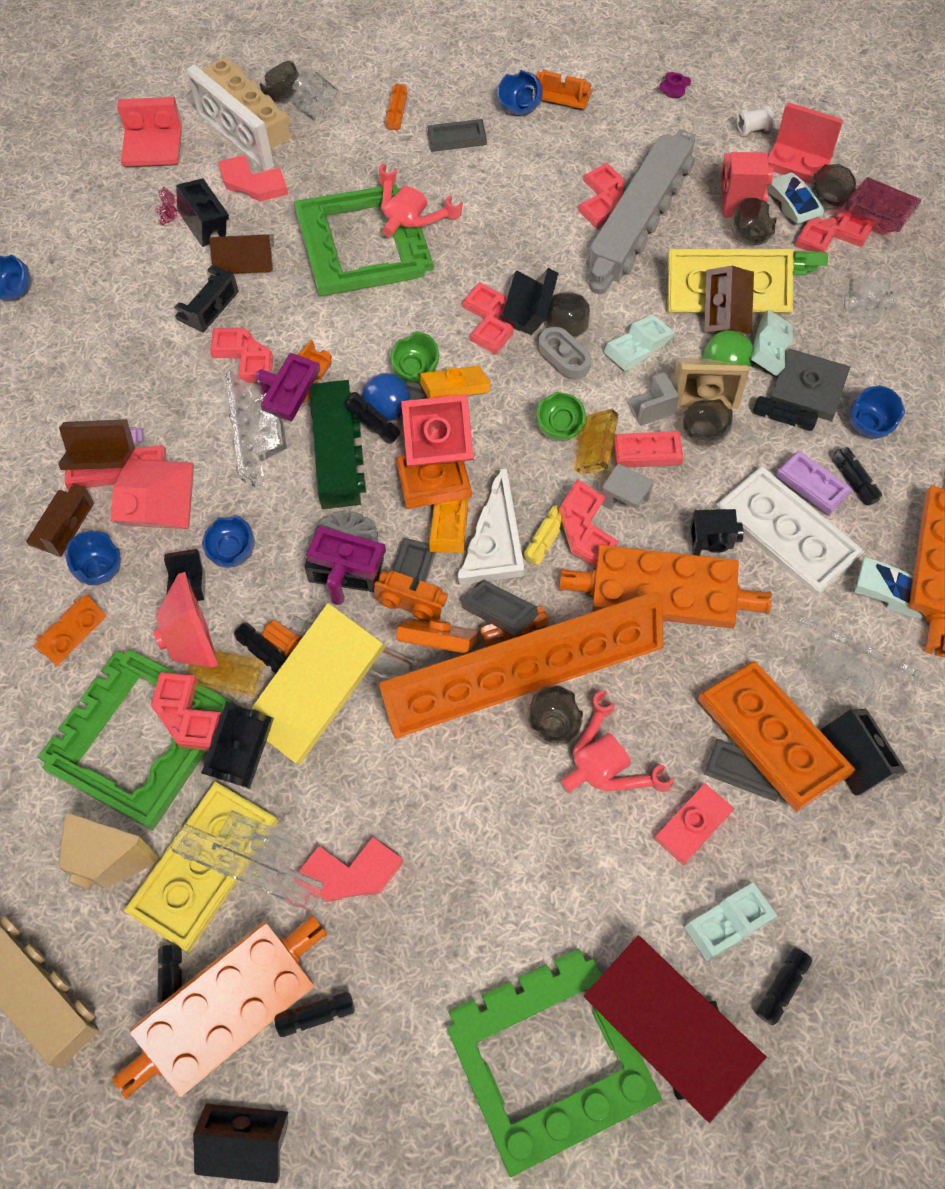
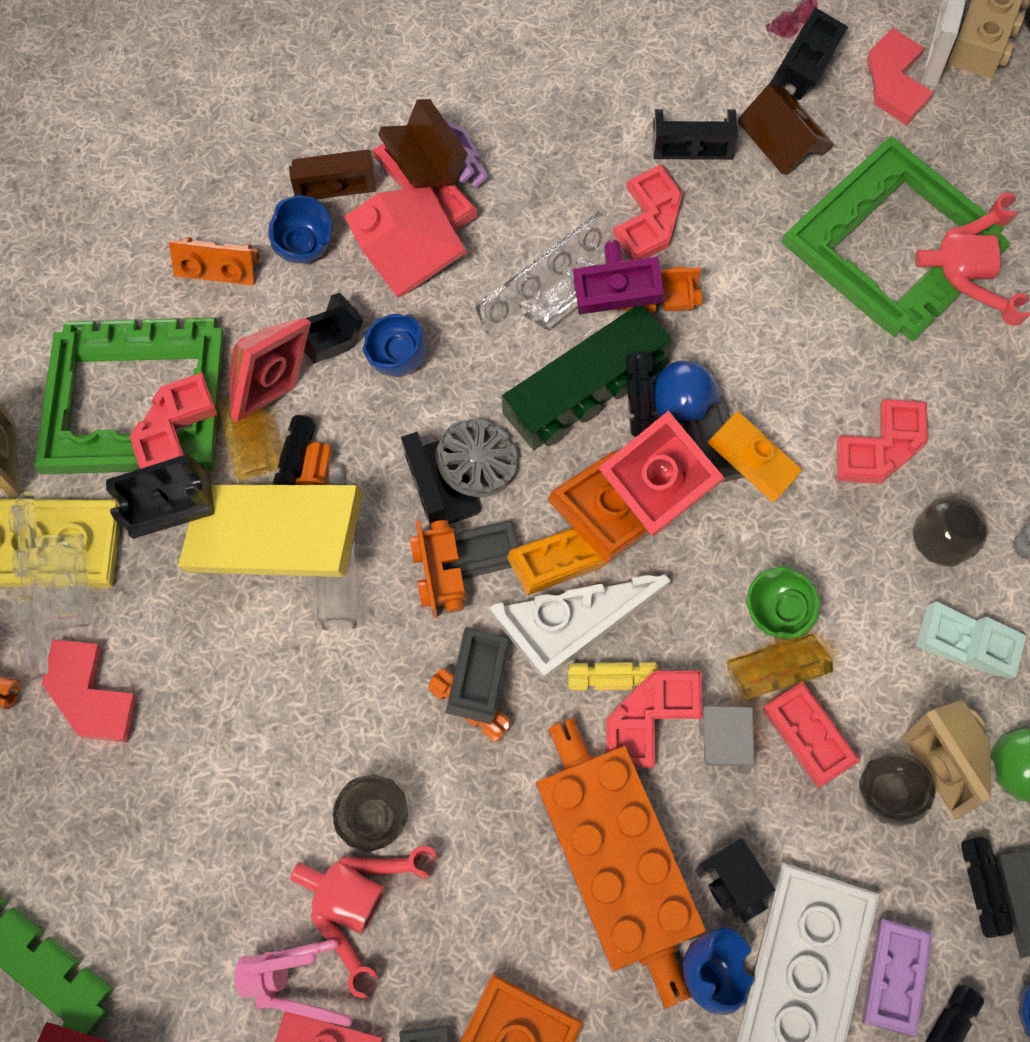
camera: 60 degrees right, 5 degrees up
(344, 555) = (431, 469): magenta plate -> none
(414, 356) = (758, 392): bright green hair -> none
(437, 635) = (395, 626): orange plate -> none
(523, 664) = (418, 747): orange plate -> none
(529, 300) = (935, 472): black panel -> none
(567, 353) = (888, 561): light grey plate -> none
(624, 835) = (268, 973): none -> bright pink plant
(657, 403) = (886, 706): light grey panel -> none
(763, 572) = (717, 972): none -> blue hair

